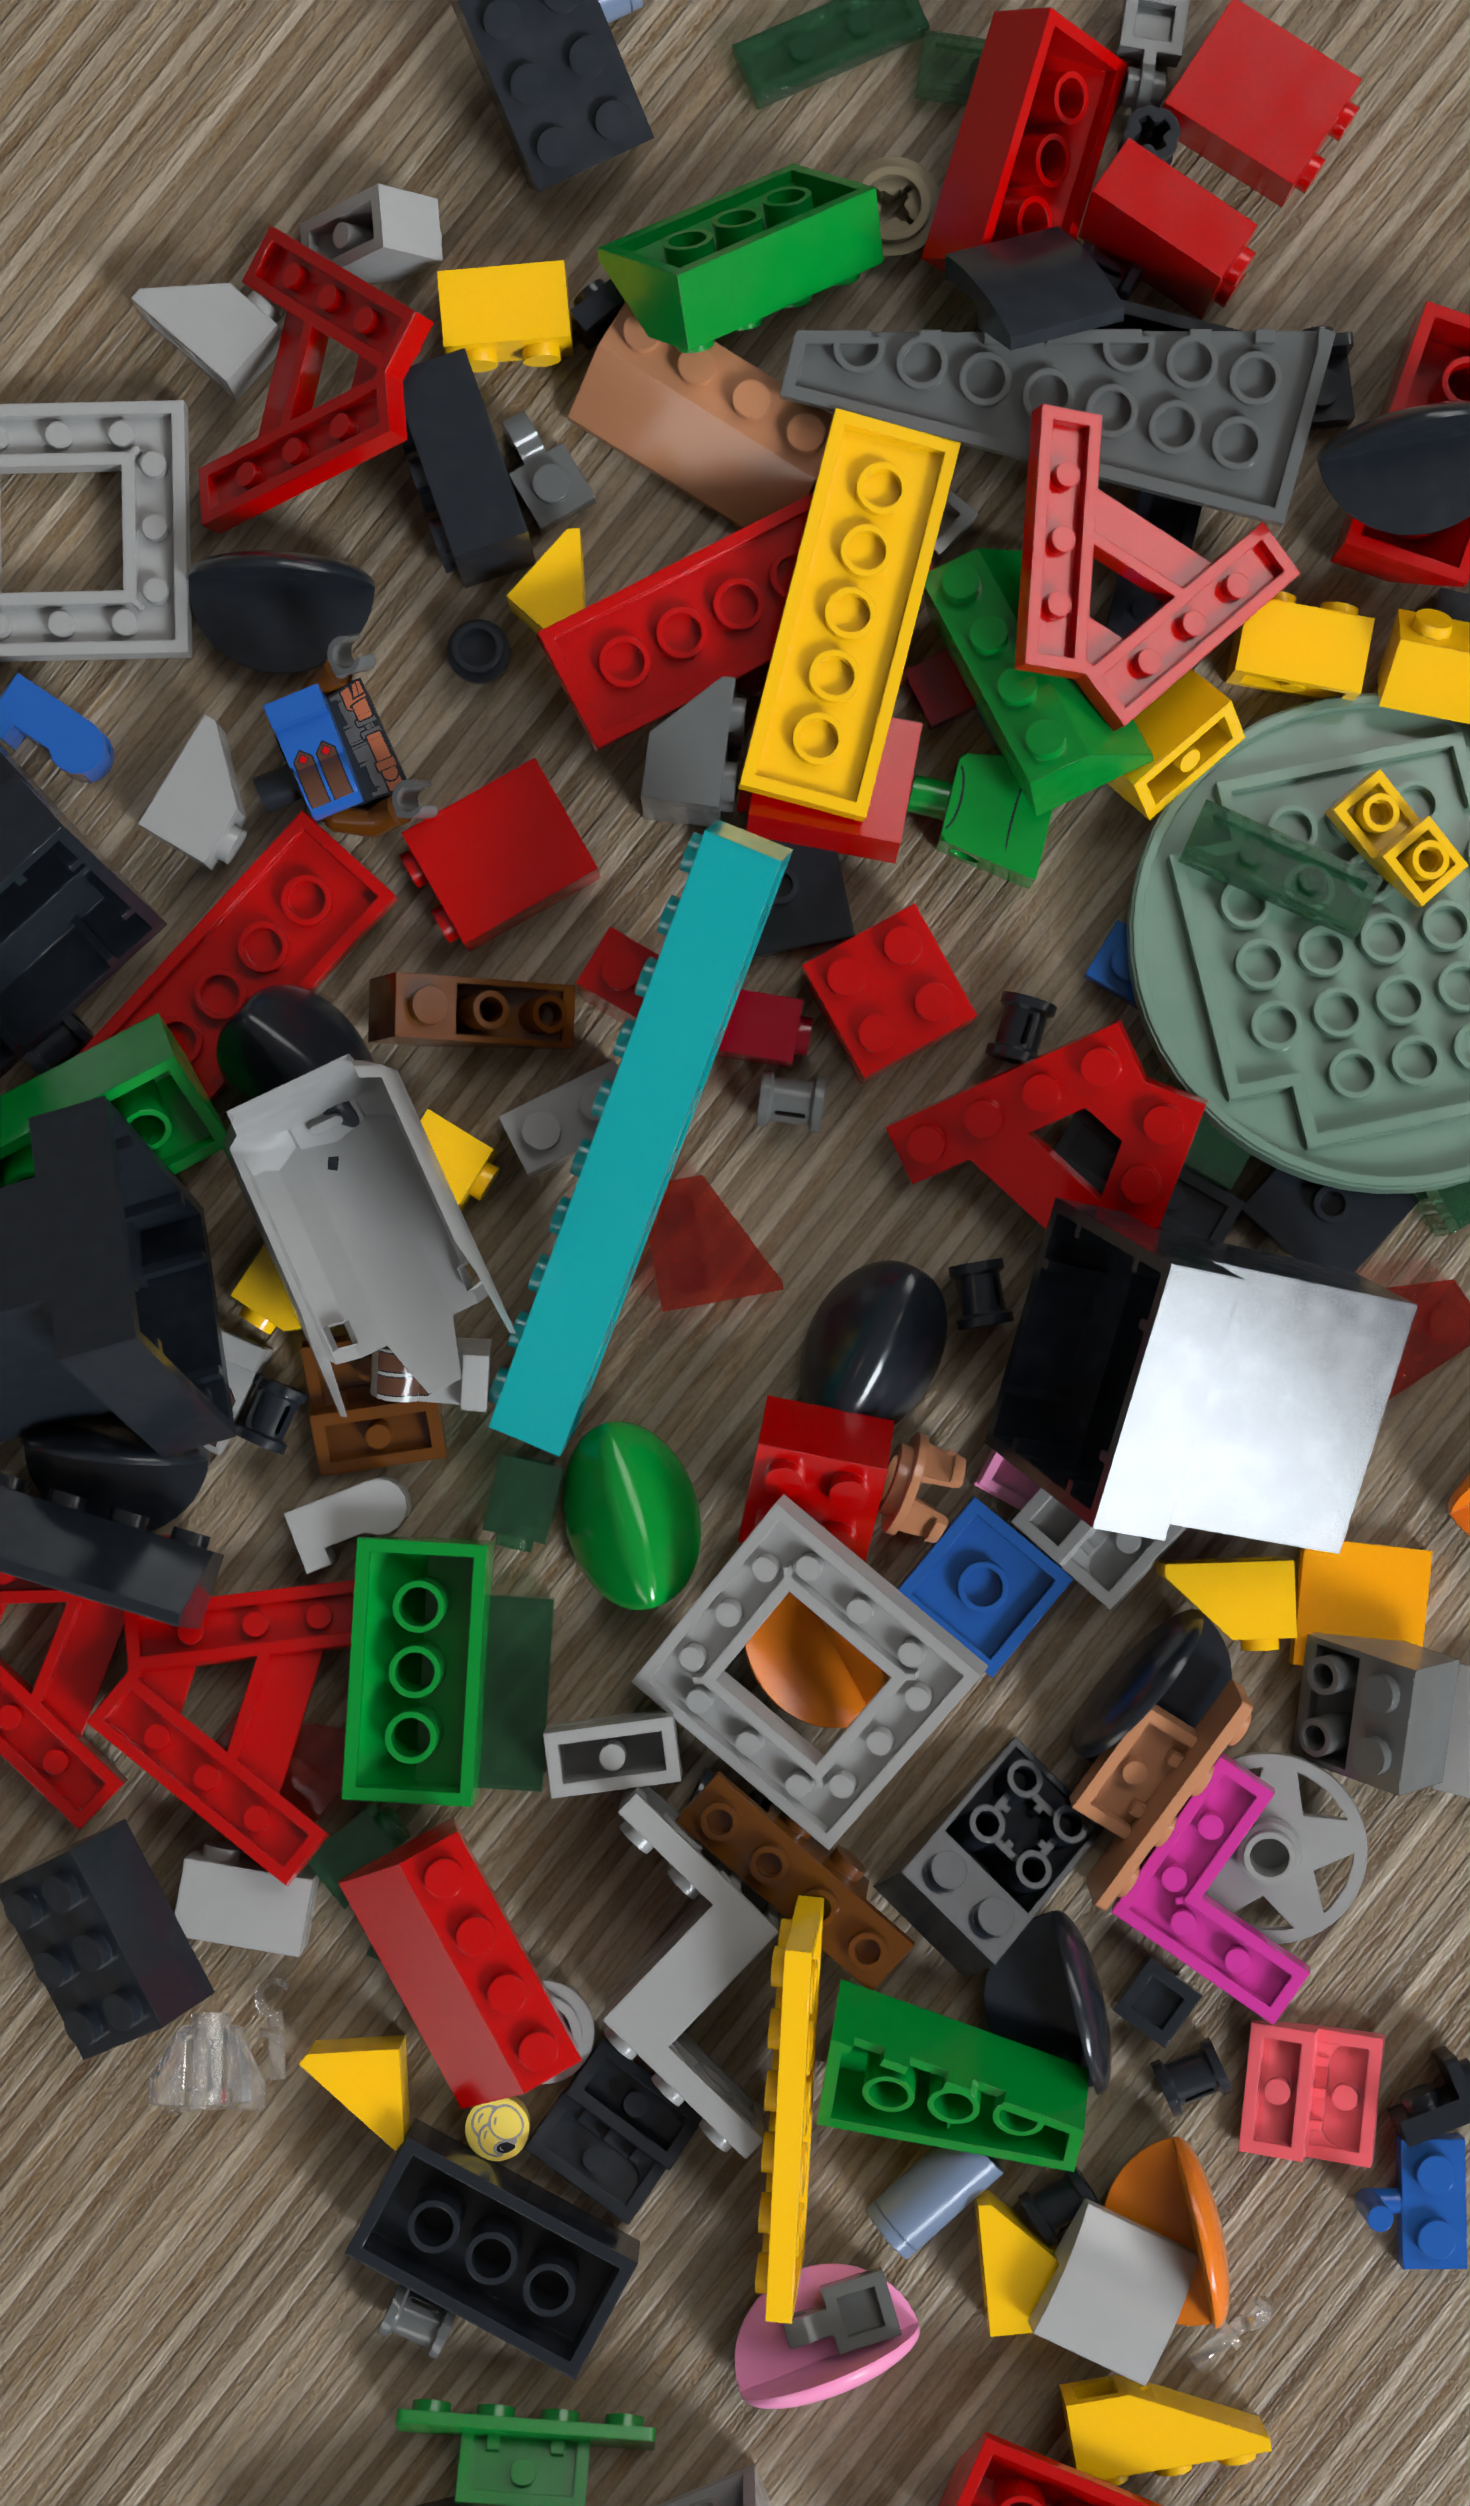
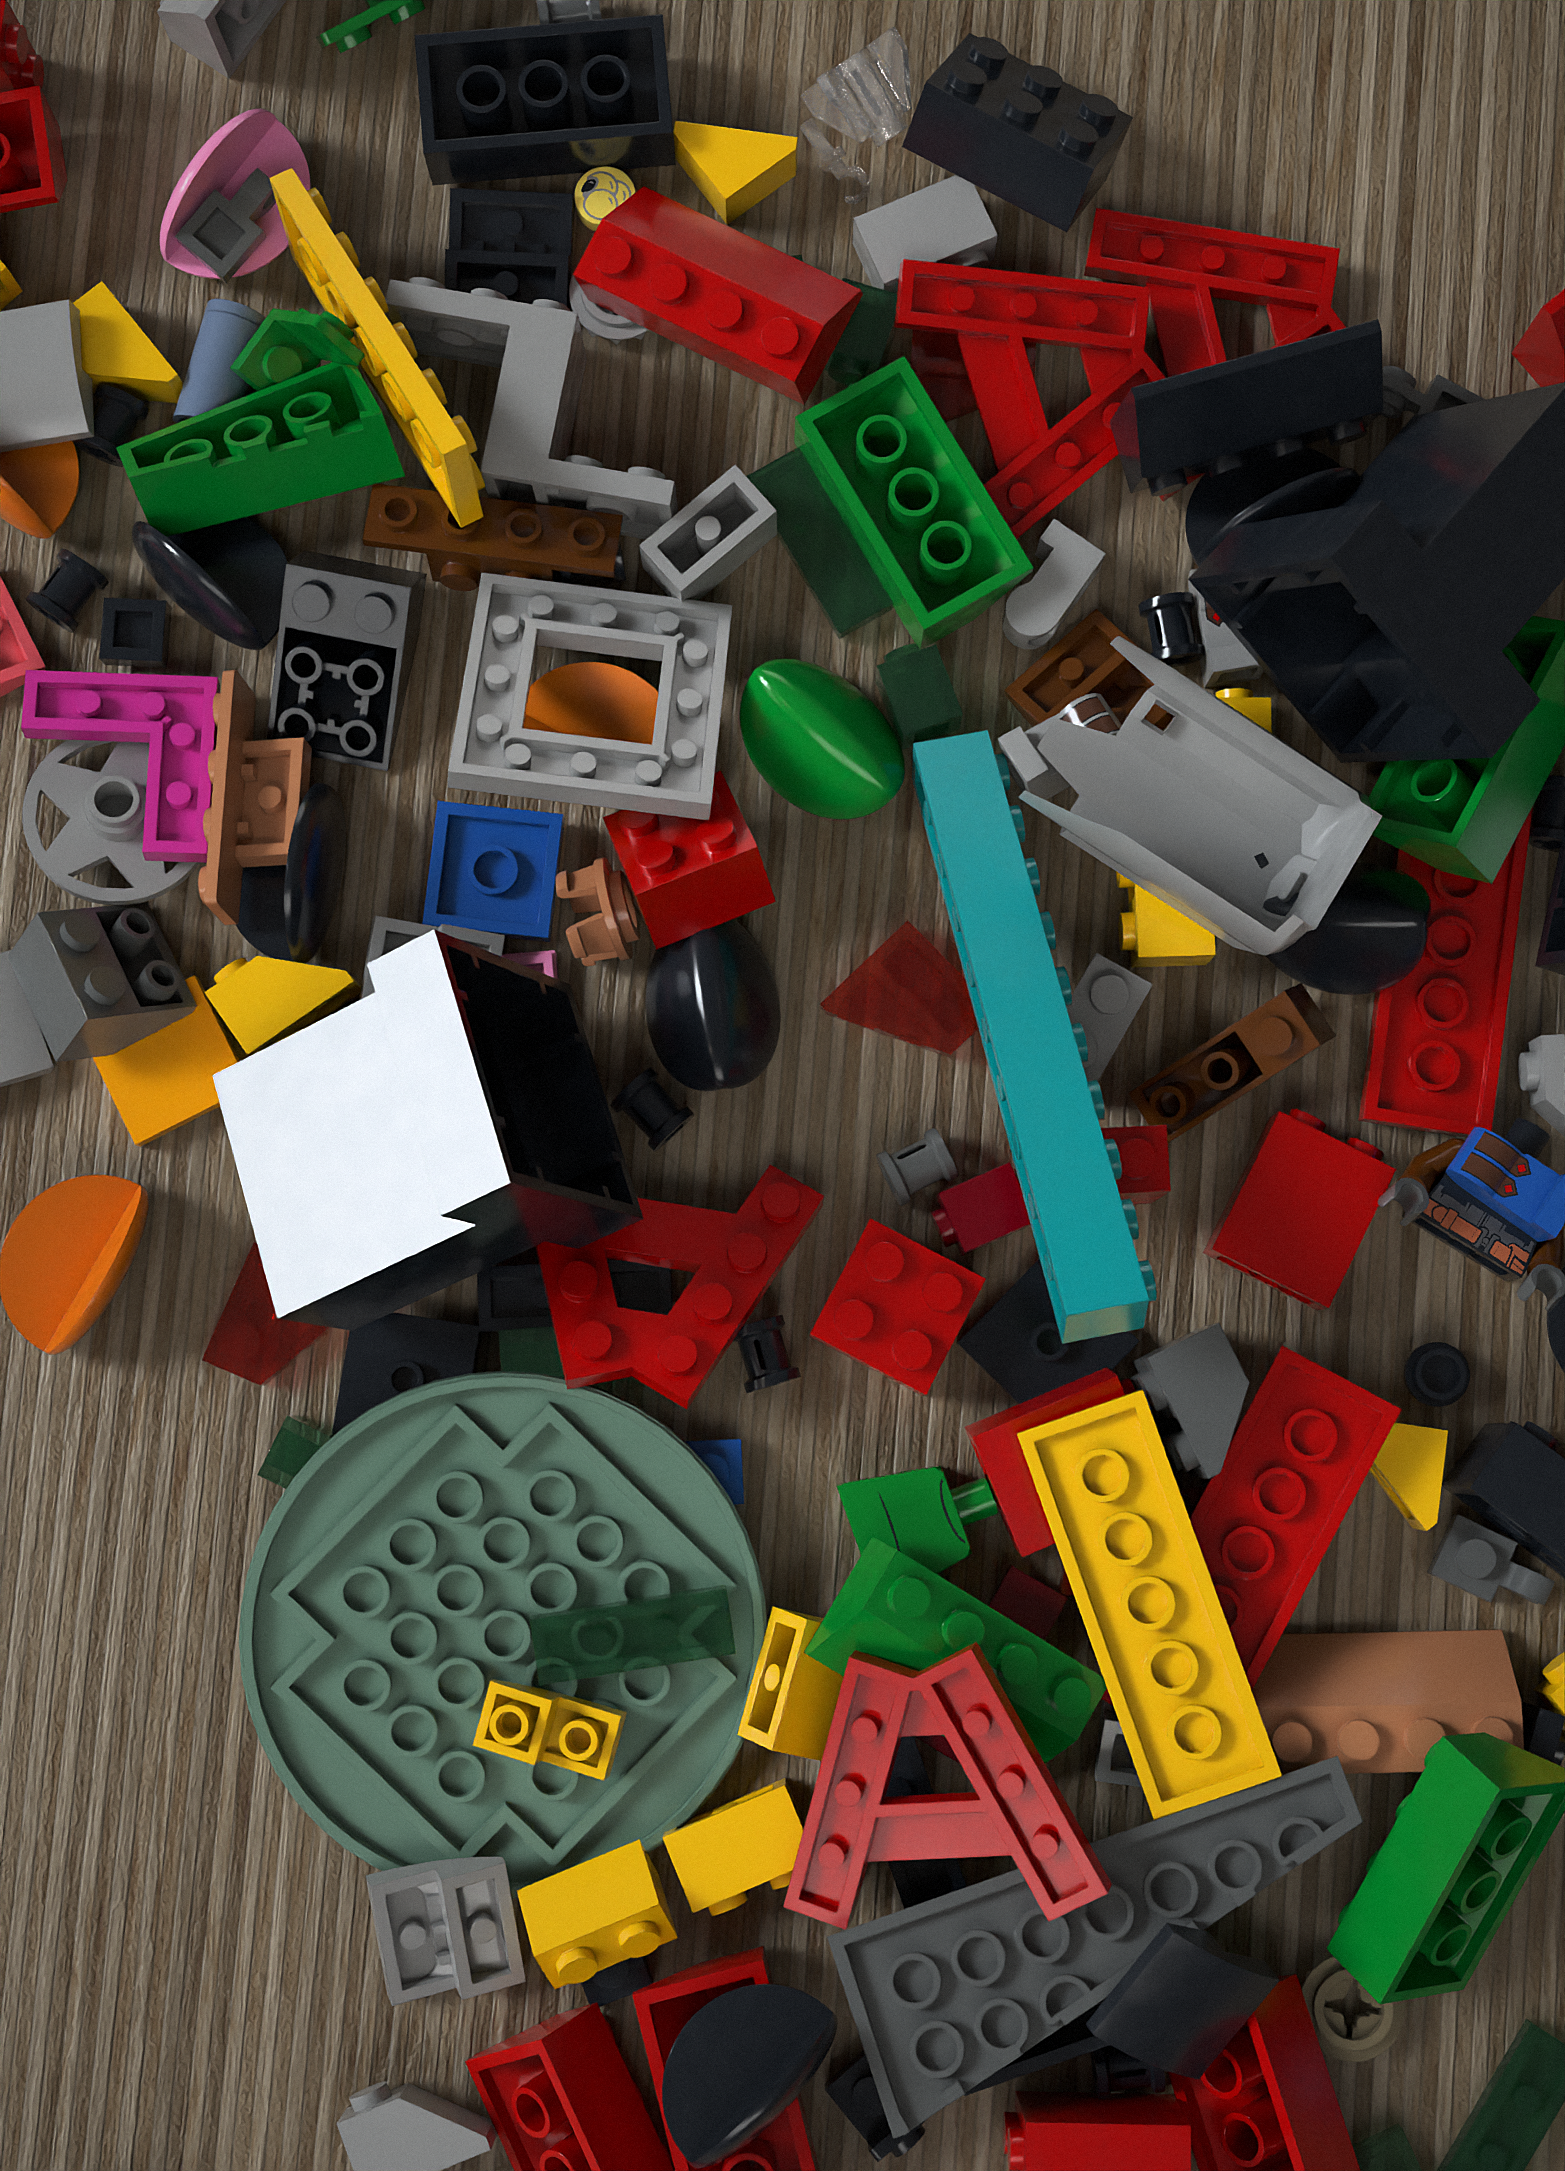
camera: 150 degrees right, 5 degrees down
(864, 2164) = (294, 344): none -> green bracket

